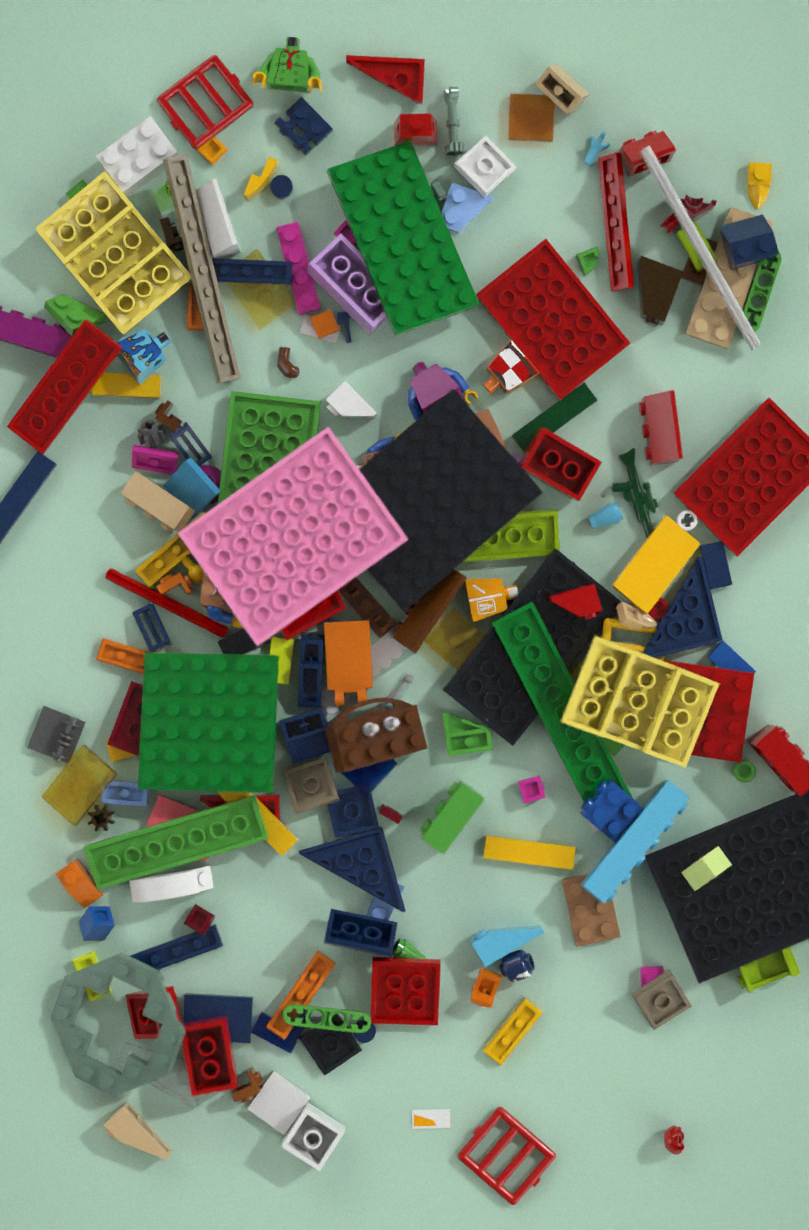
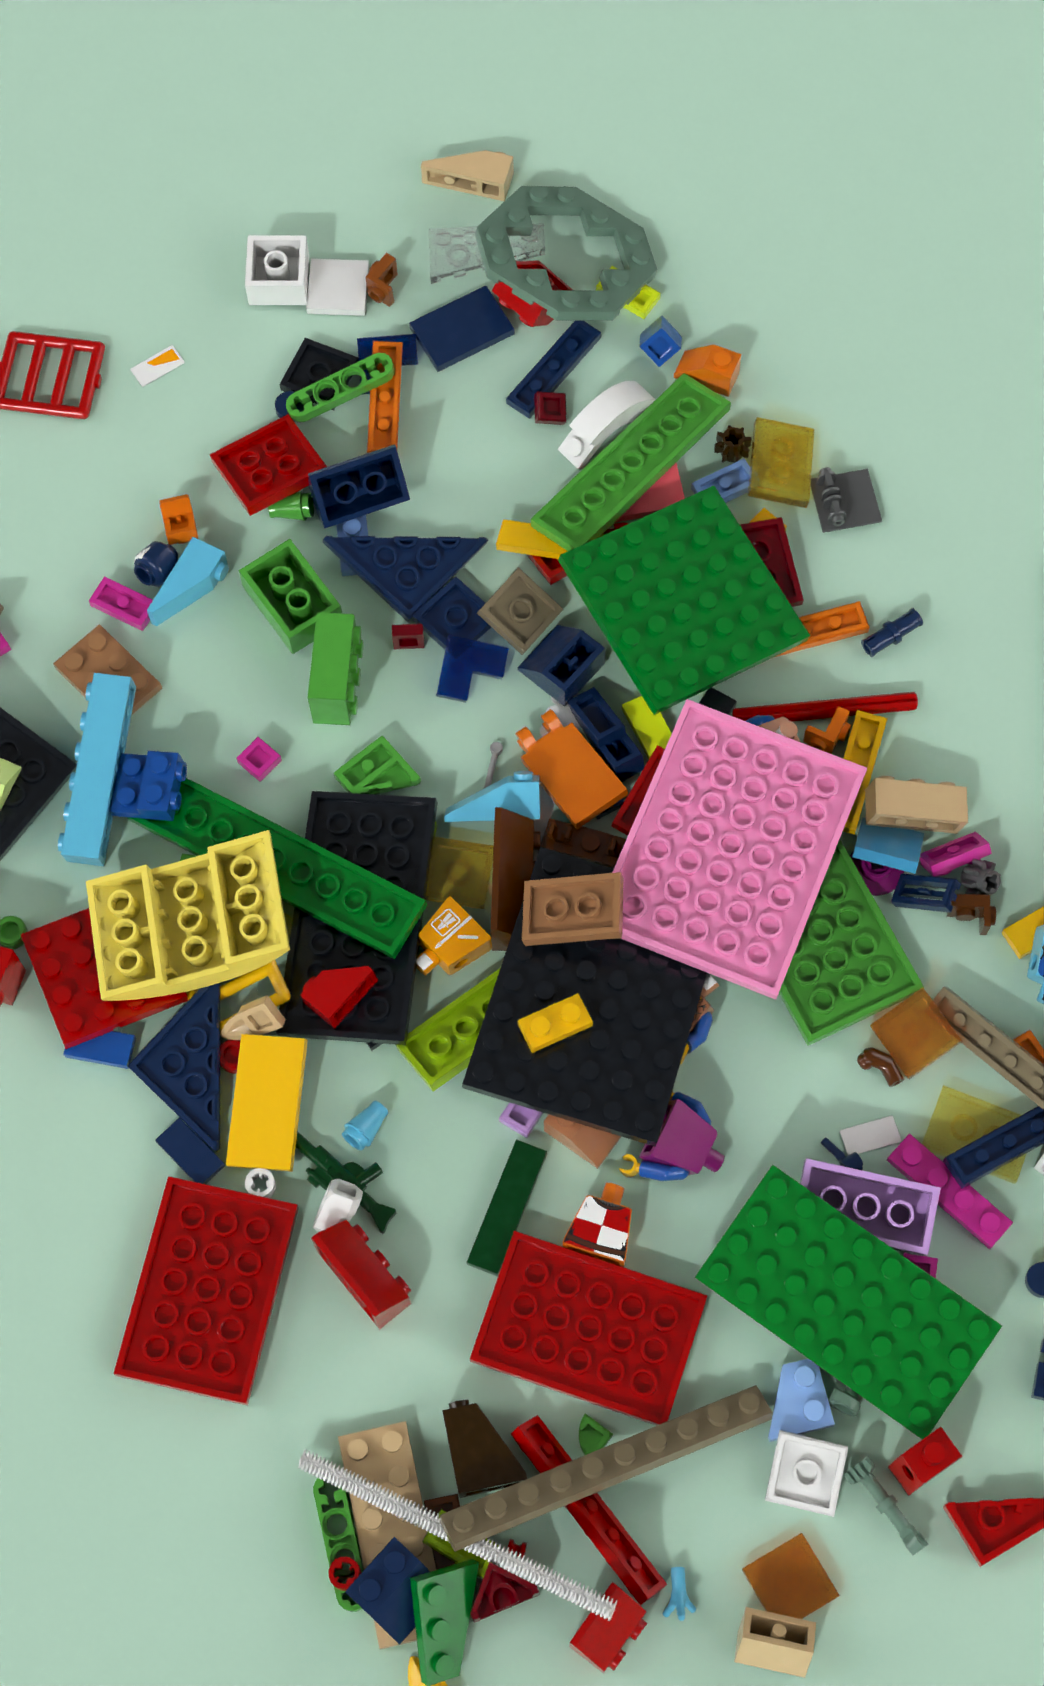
camera: 155 degrees right, 20 degrees down
(90, 625) = (892, 632): none -> dark blue pin
(152, 648) = (814, 679): dark blue tile -> none
(209, 1056) = (444, 277): red brick -> none
(254, 367) = (916, 1033): none -> clear orange tile
(324, 324) = (869, 1141): orange tile -> none
(349, 404) = (770, 1062): white slope -> none
(374, 734) = (482, 698): reddish brown piece -> none
(404, 665) = (514, 793): none -> medium azure slope
(414, 552) = (573, 909): none -> medium nougat plate
(447, 886) = (288, 594): none -> bright green brick
(467, 492) = (555, 1023): none -> yellow plate
(512, 1031) = (119, 500): yellow tile -> none
(529, 852) = (218, 692): yellow tile -> none
(554, 952) = (121, 603): none -> dark pink plate
(559, 464) = (464, 1144): red brick -> none
(594, 232) = (604, 1468): none -> dark tan plate
(651, 476) = (338, 1204): none -> white rock
(732, 212) = (442, 1618): none -> green wing
(777, 268) = (338, 1564): none -> red bush

